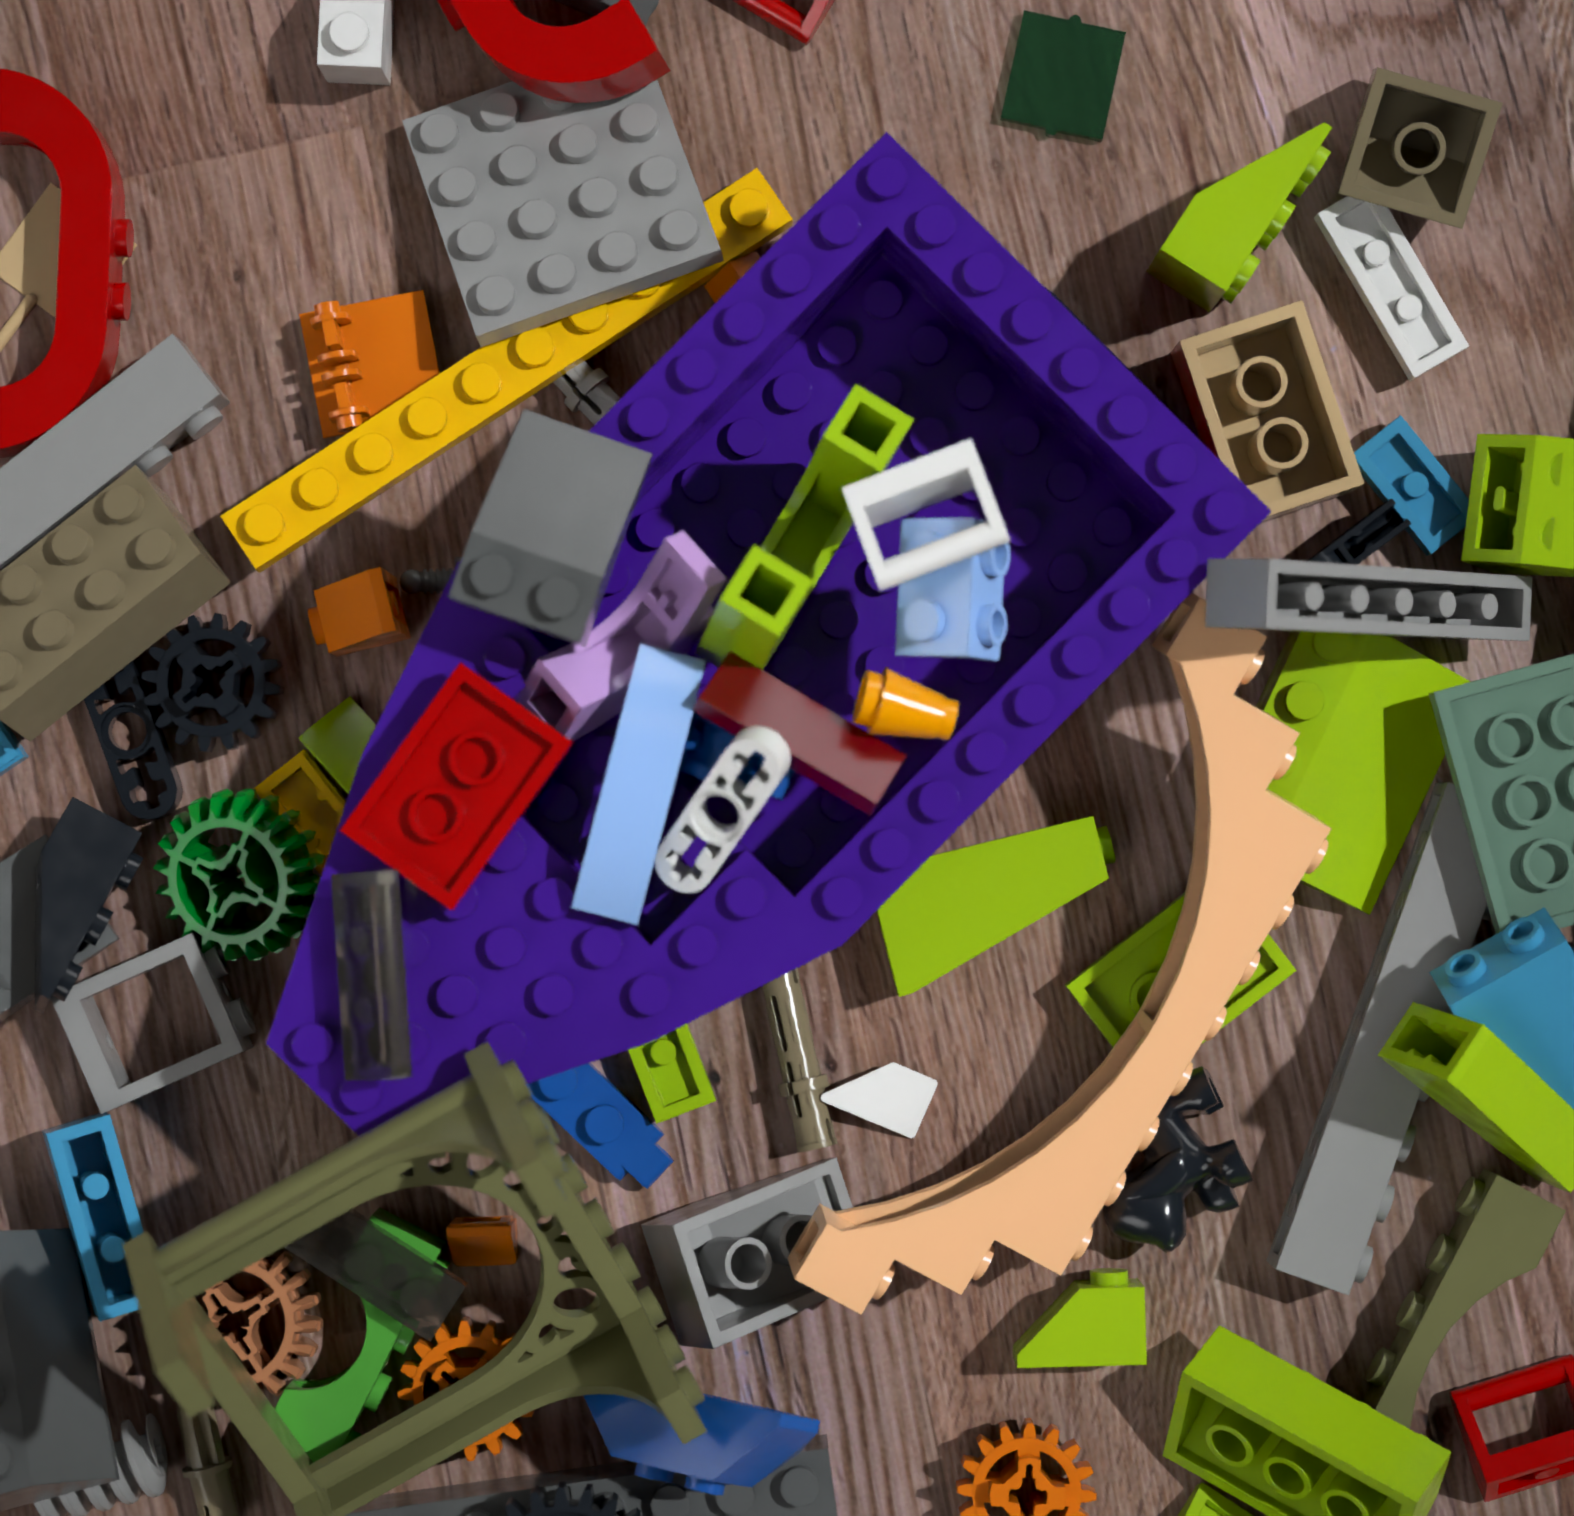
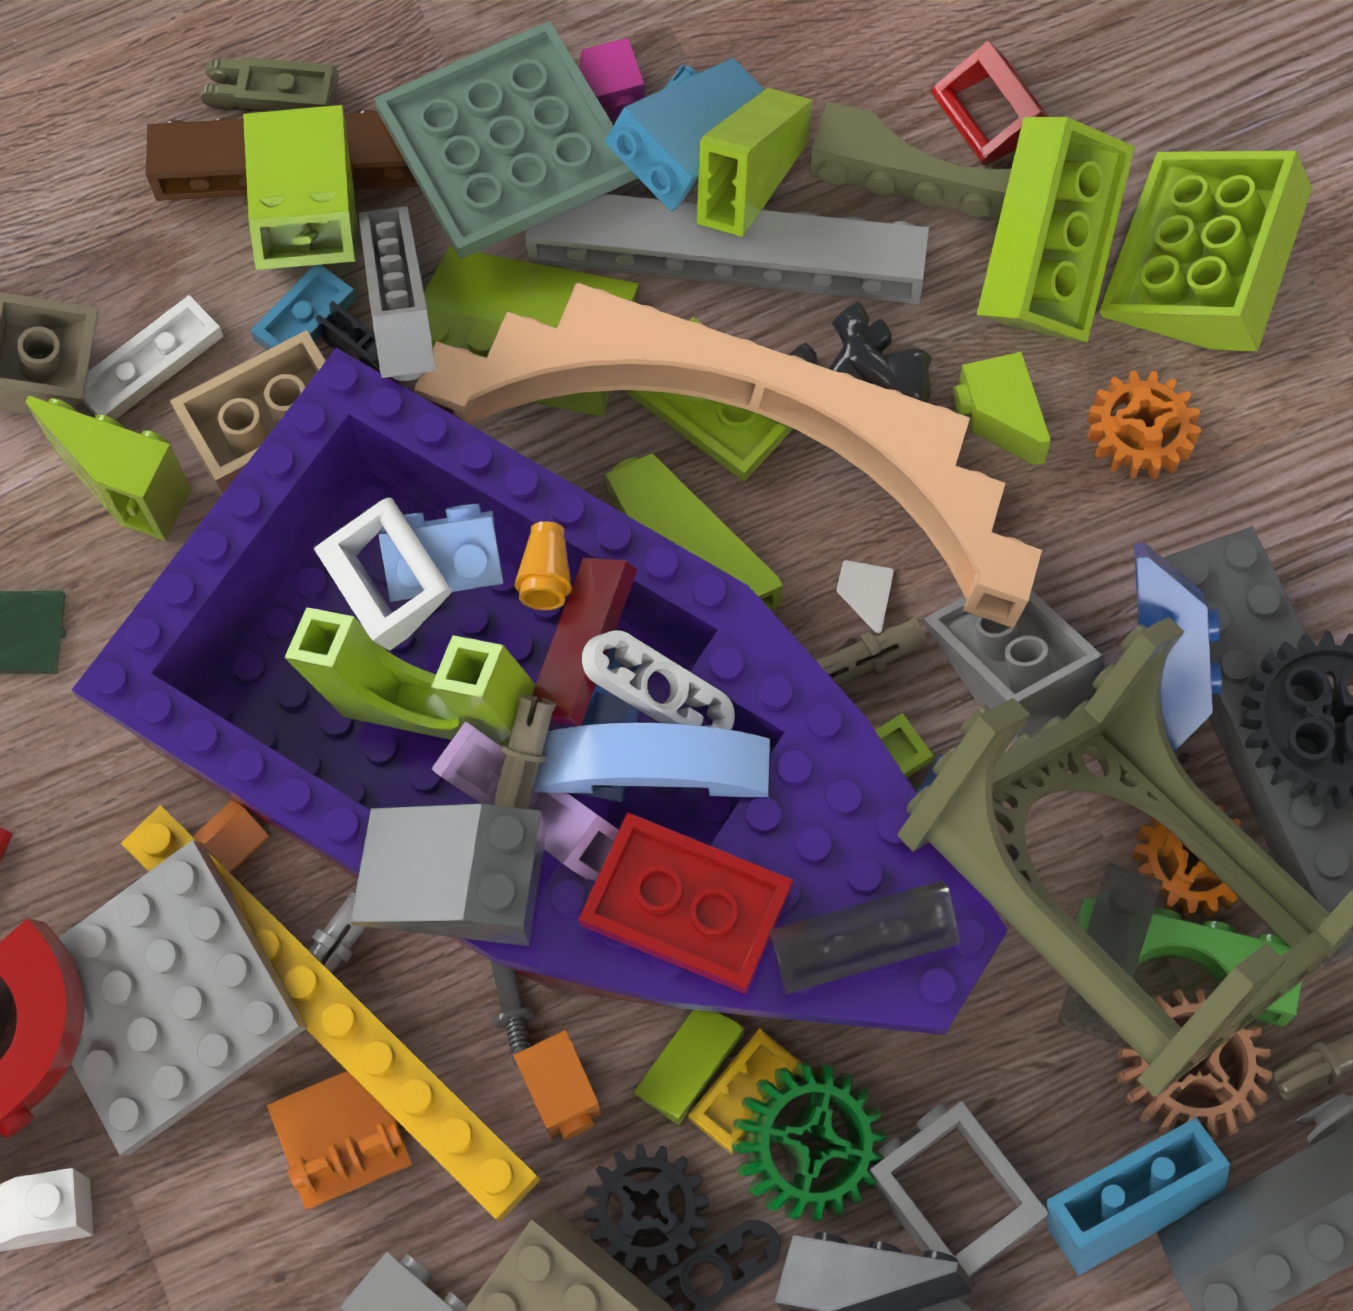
camera: 100 degrees left, 20 degrees down
(483, 1240) = (1066, 875): orange slope -> none
(675, 639) = (524, 752): none -> dark tan axle

